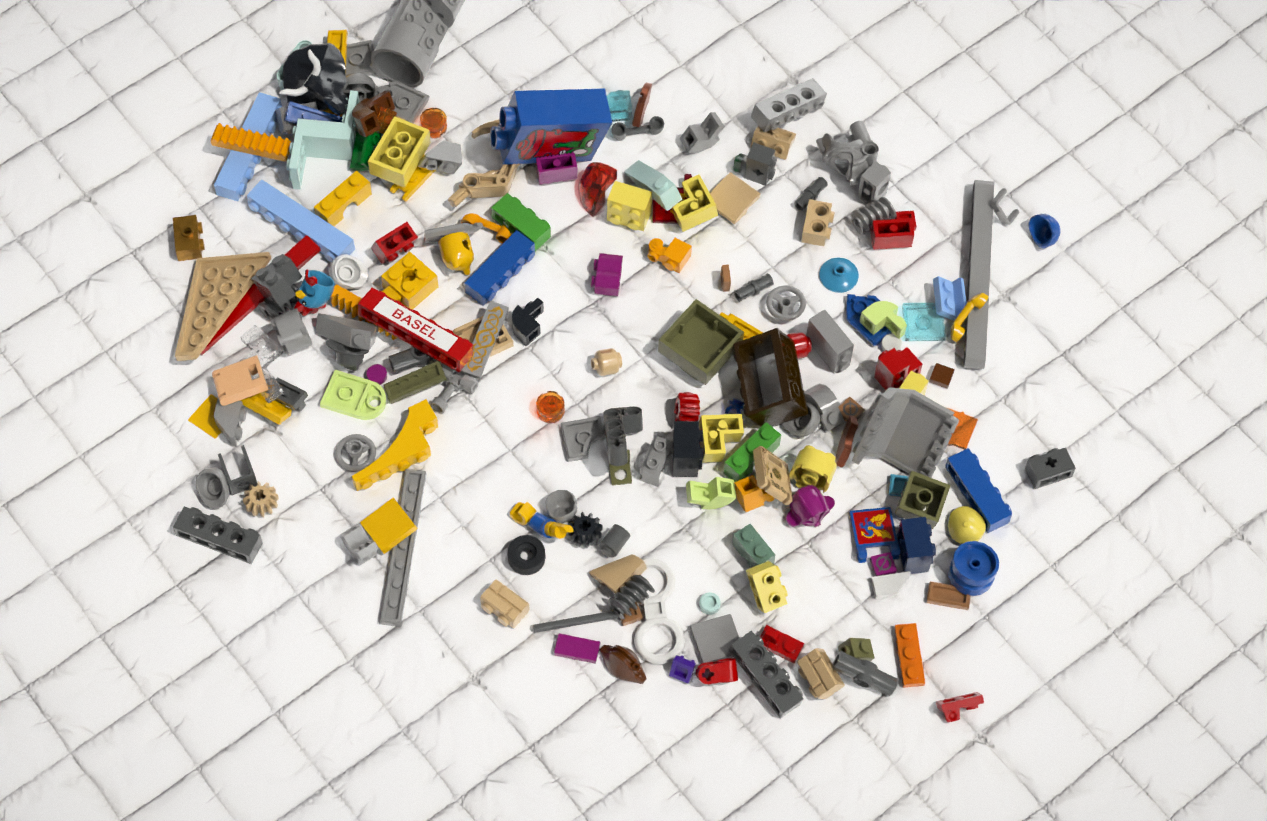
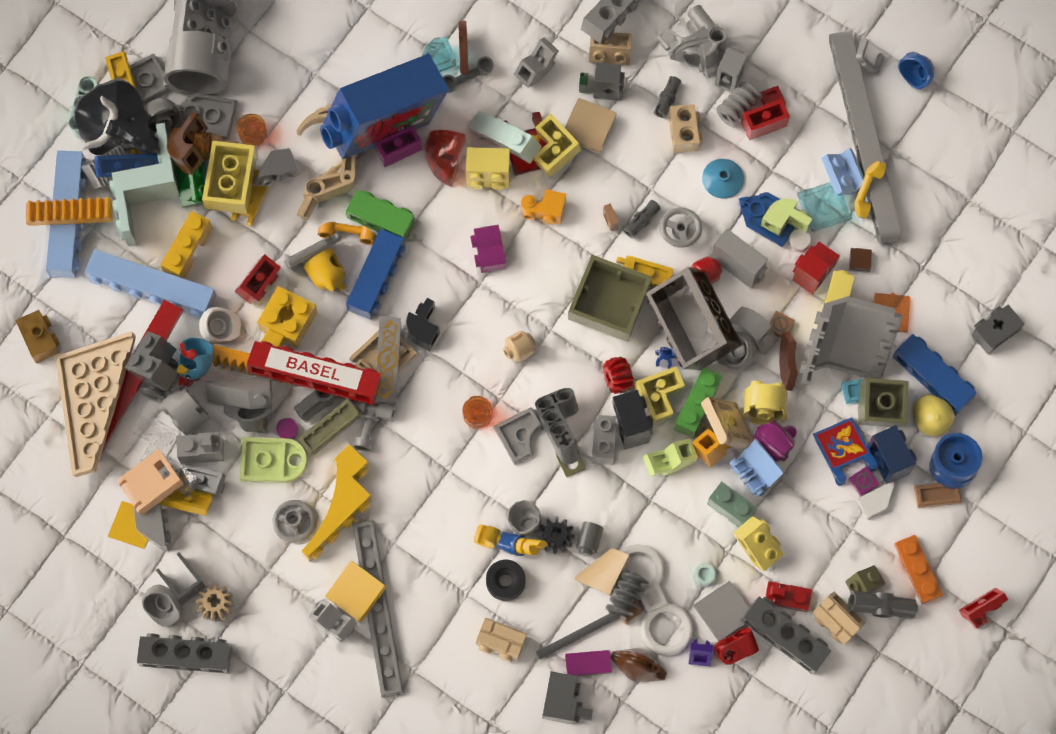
camera: 15 degrees left, 10 degrees up
(294, 367) = (200, 448): none -> light grey hinge
(541, 671) = (560, 700): none -> dark grey hinge
(786, 523) = (757, 468): none -> light blue hinge

